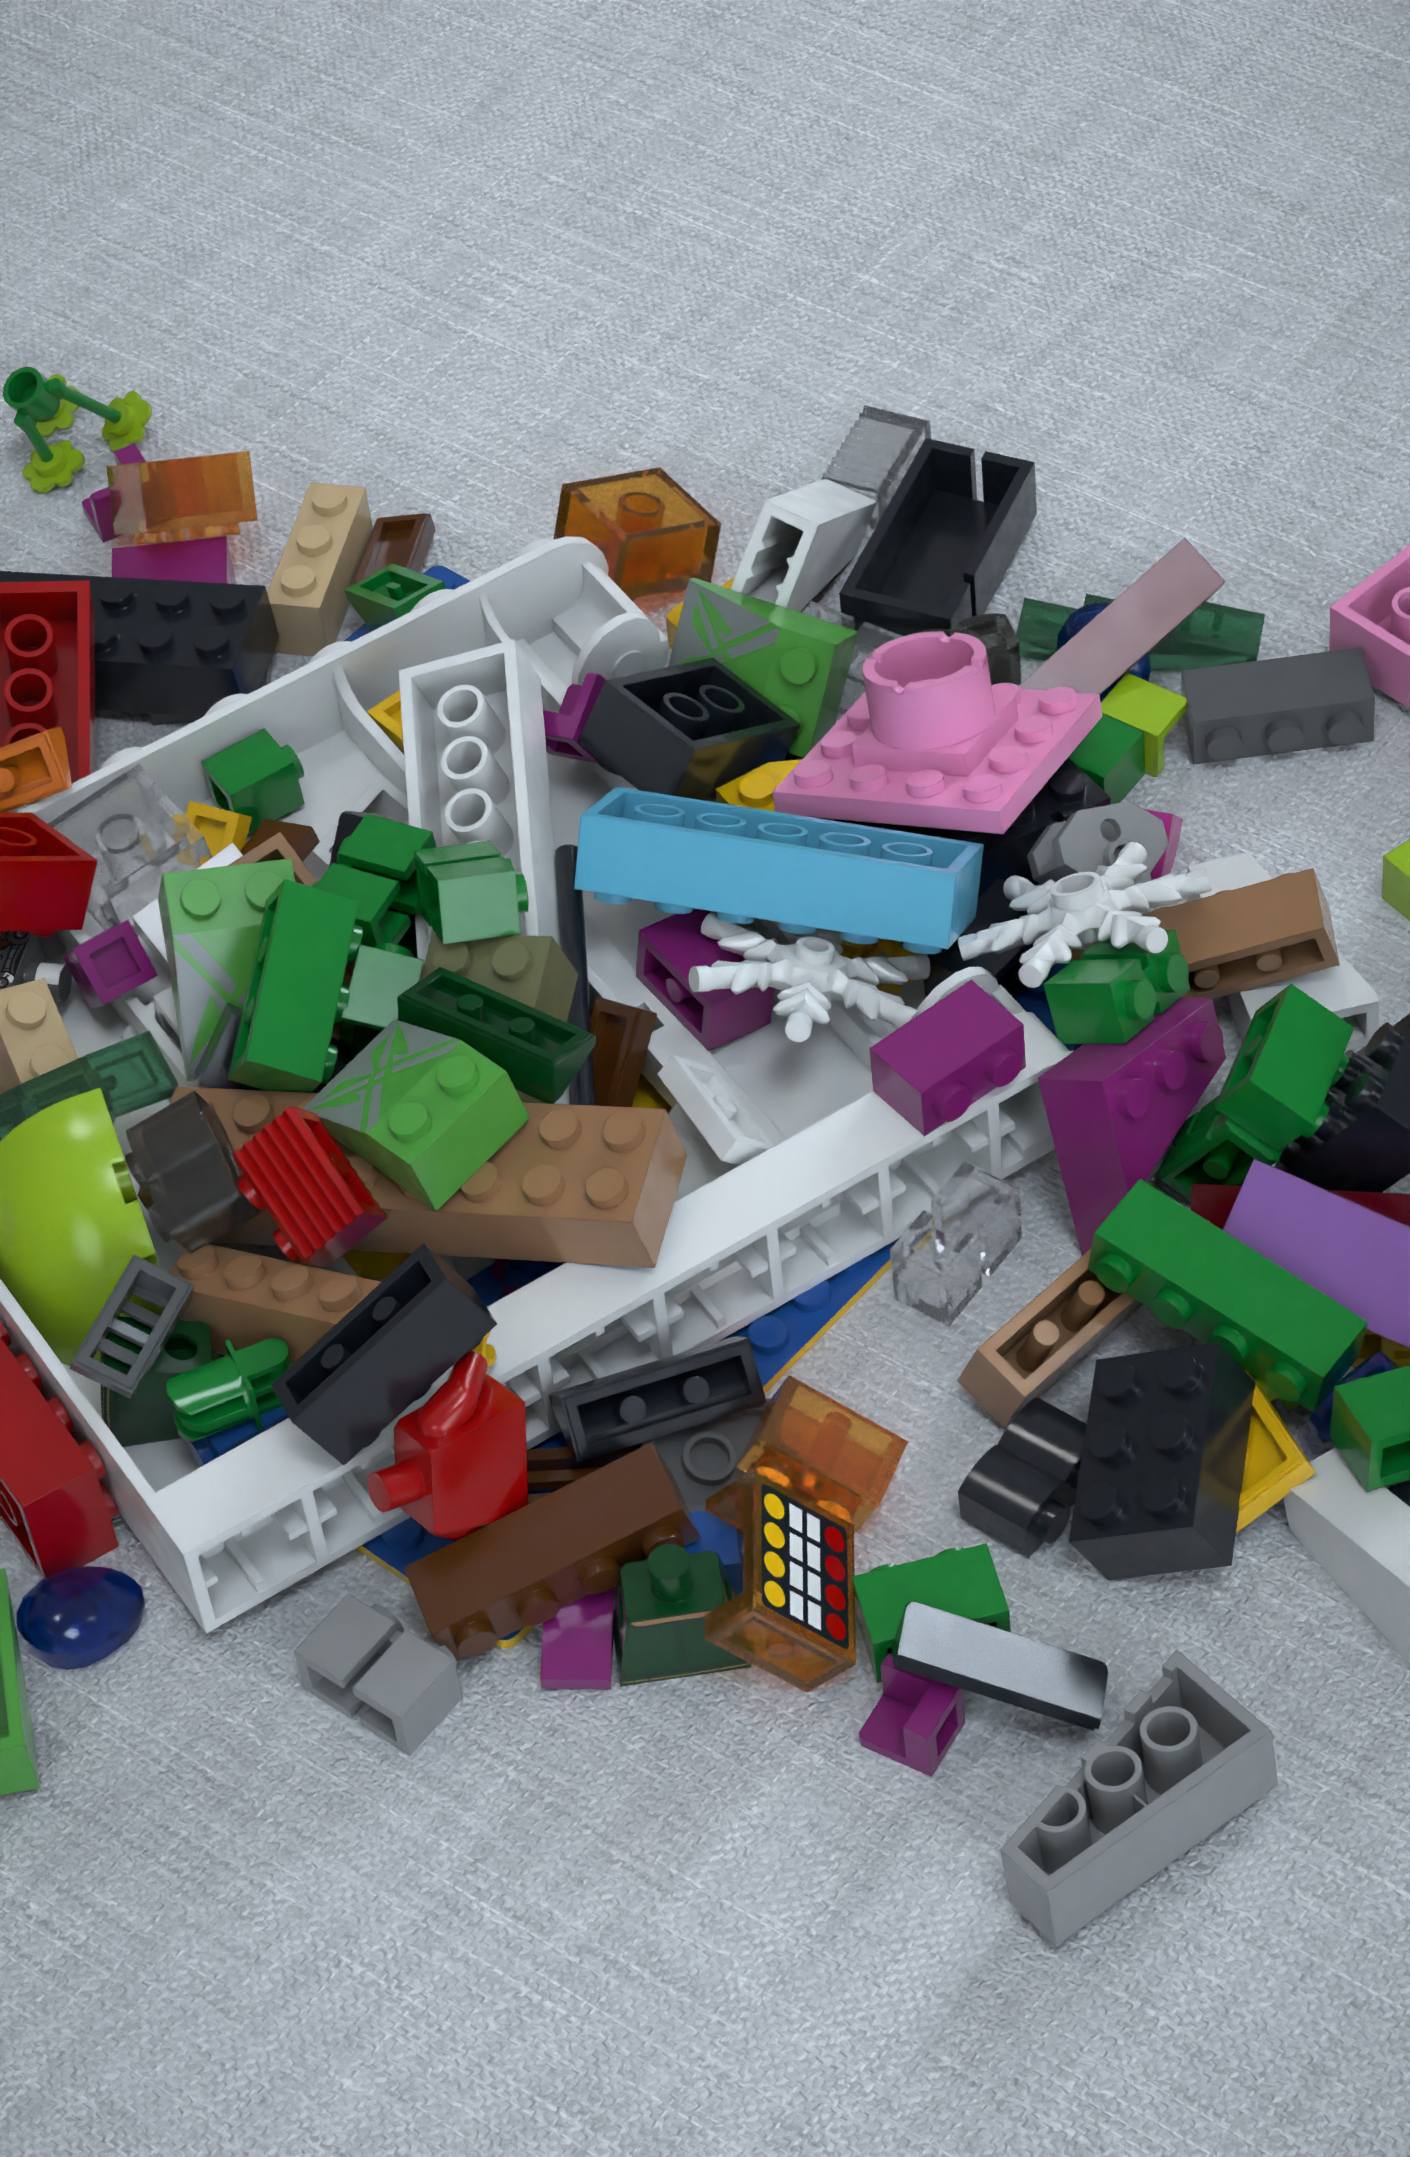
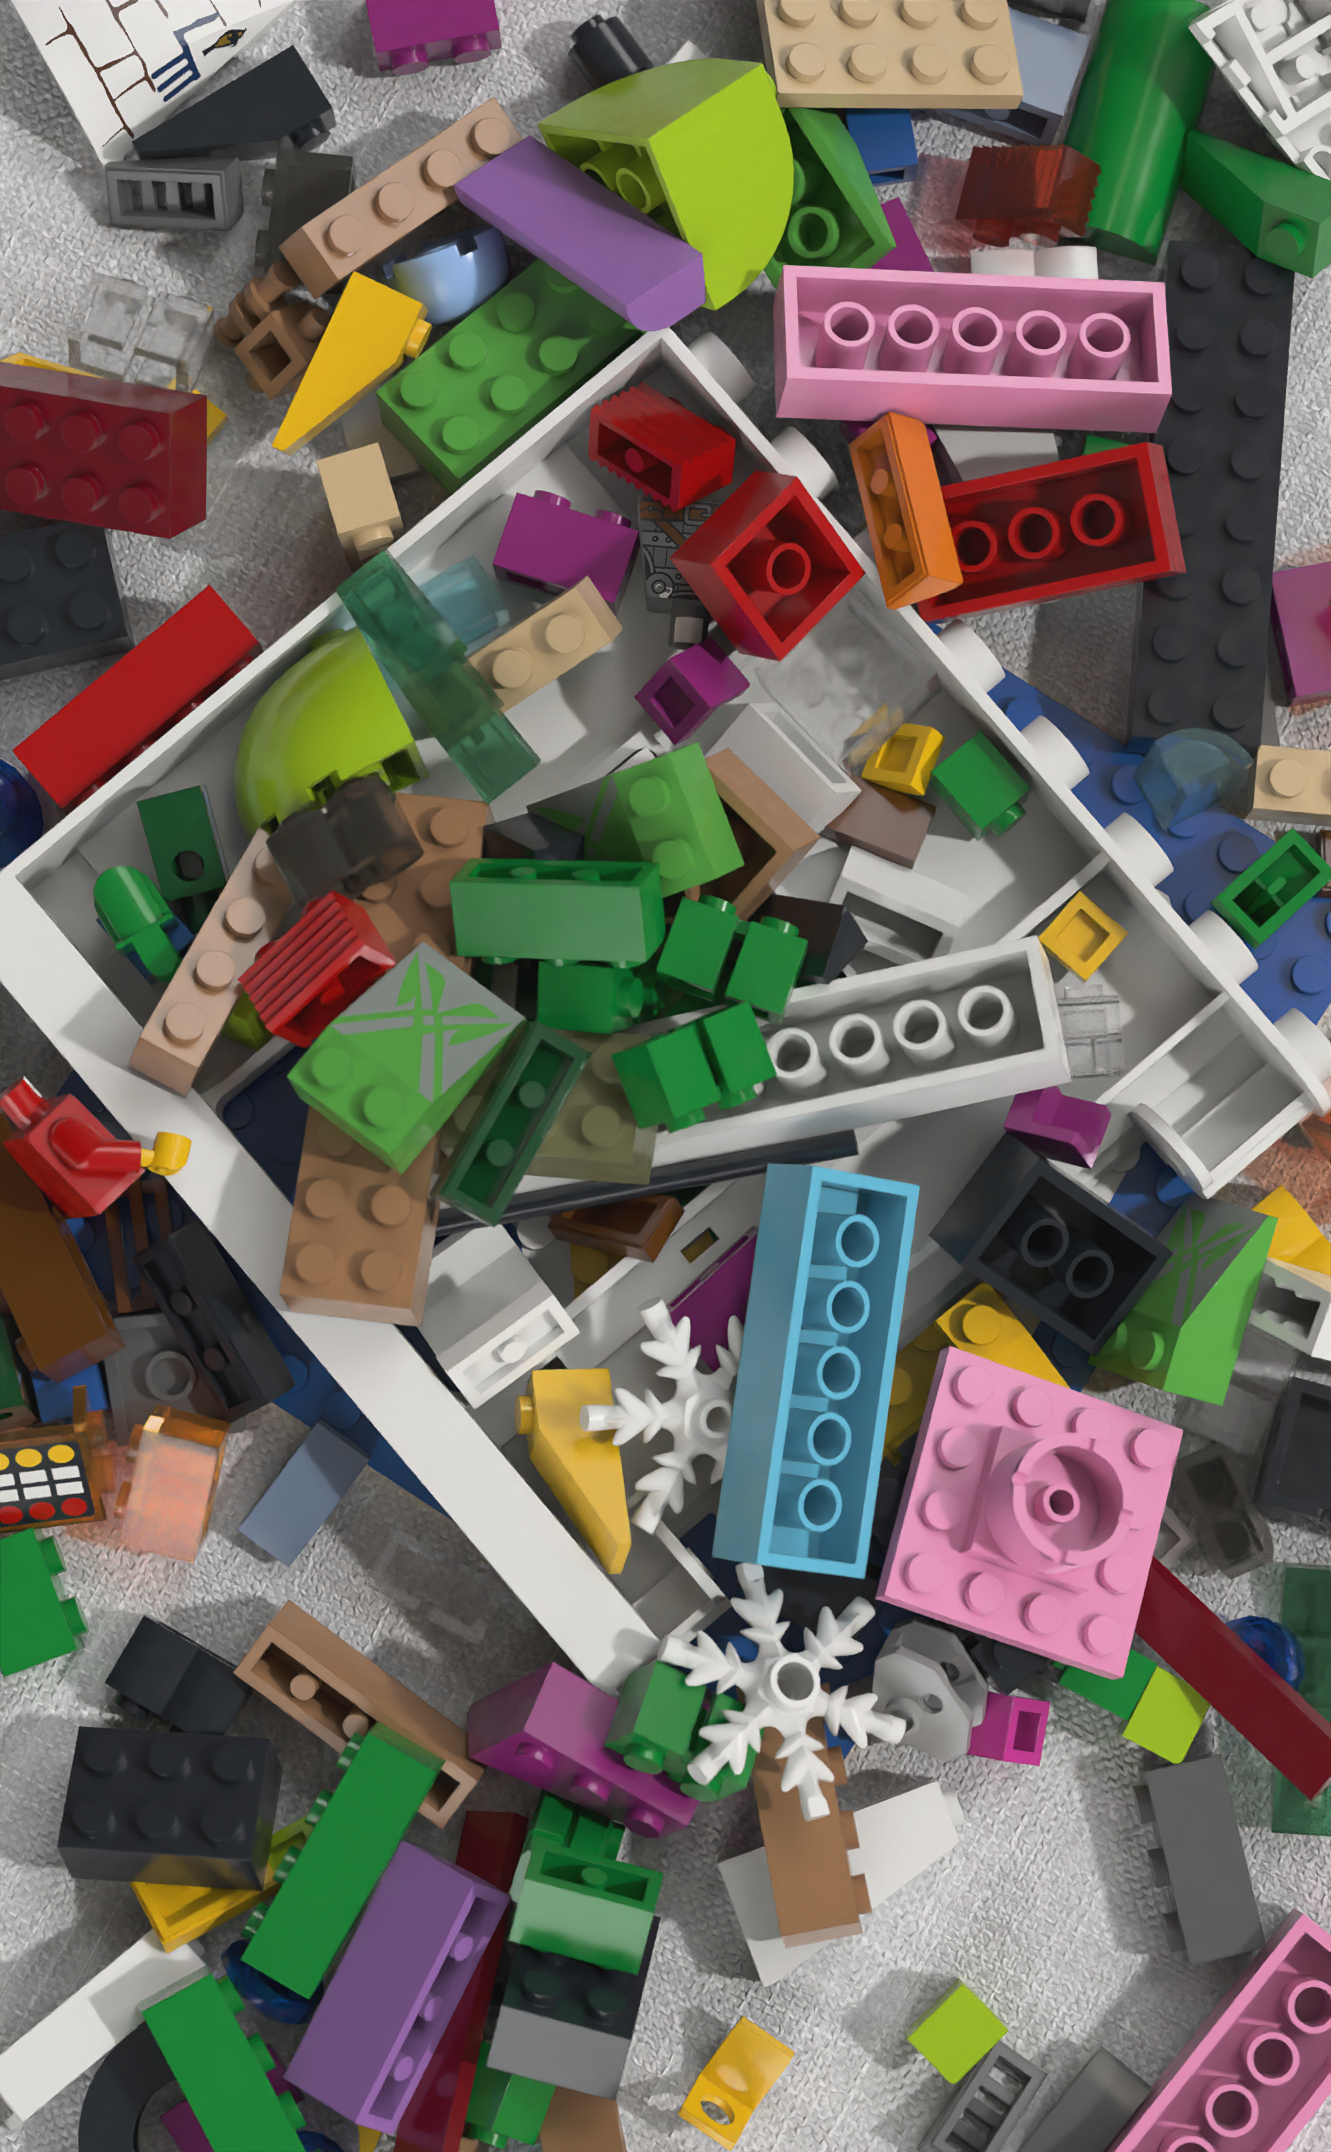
camera: 80 degrees right, 35 degrees up
(153, 1286) = (208, 804): dark grey slope -> none
(273, 626) = (1190, 773): none -> clear light blue brick
(383, 1354) = (114, 1078): black brick -> none
(821, 1073) = (578, 1464): none -> yellow slope
(851, 1360) = (304, 1492): none -> sand blue slope
(948, 1058) = (553, 1574): magenta brick -> none

